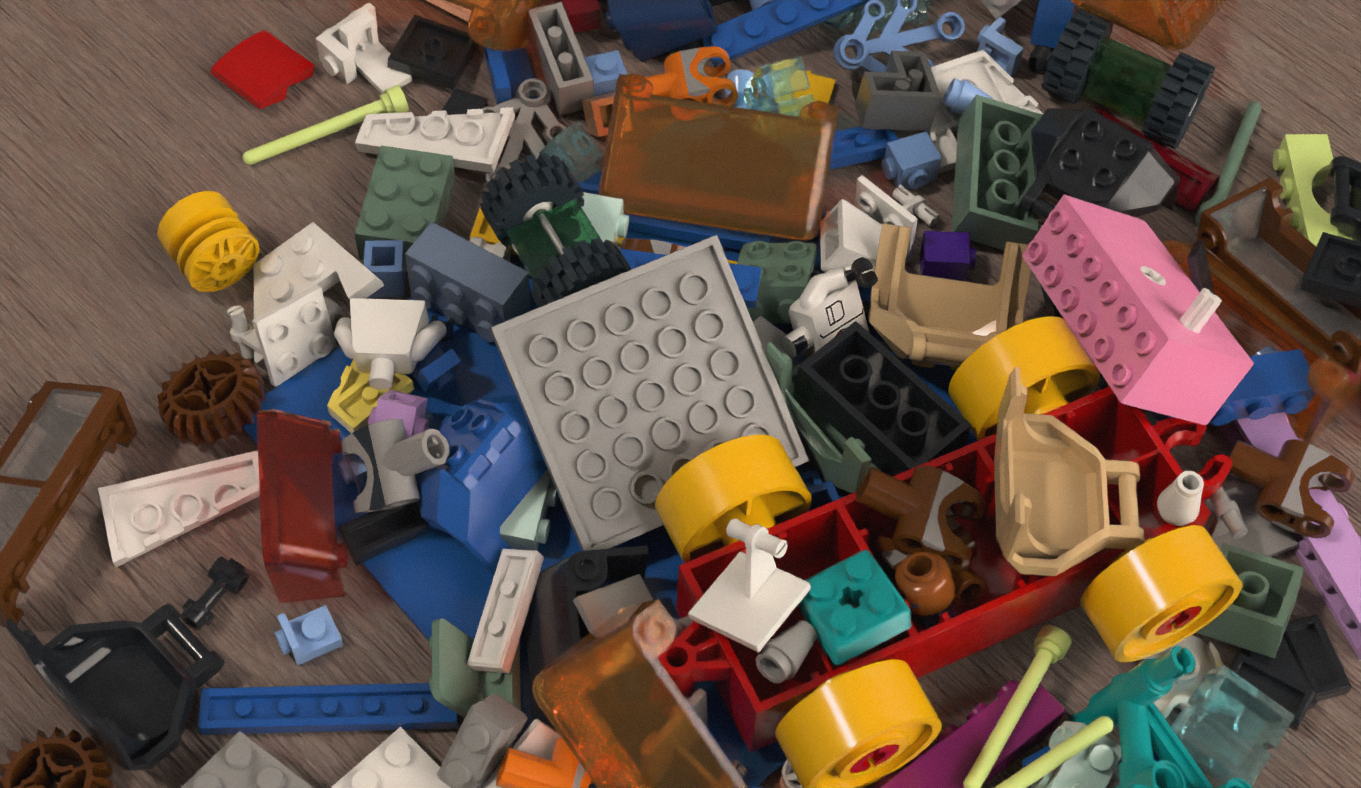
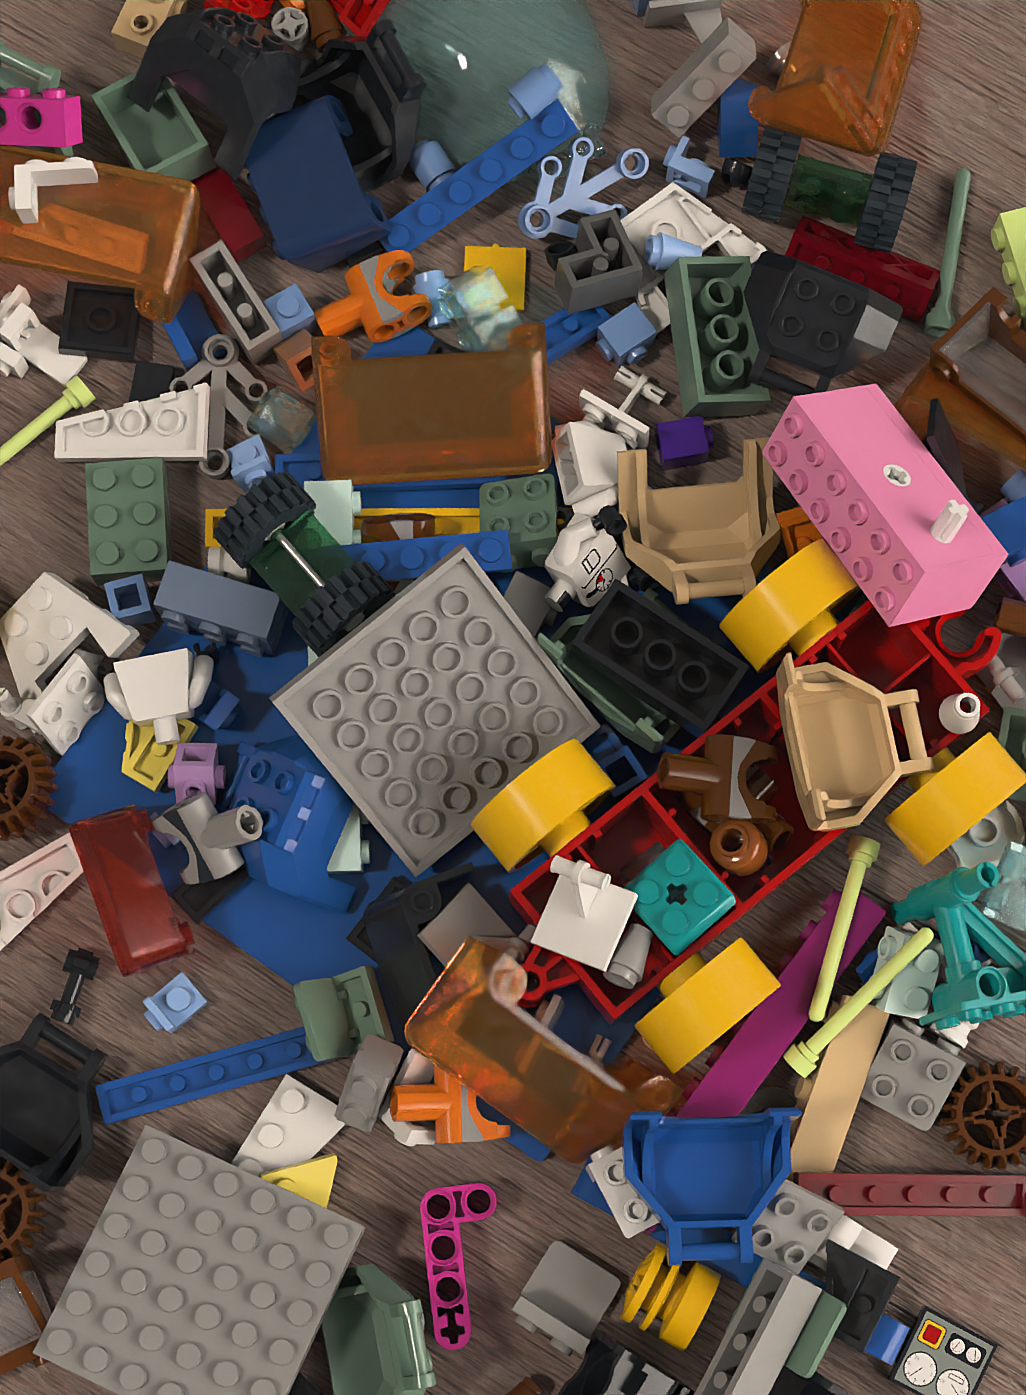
camera: 10 degrees left, 20 degrees up
(505, 611) = (354, 948): white tile -> none

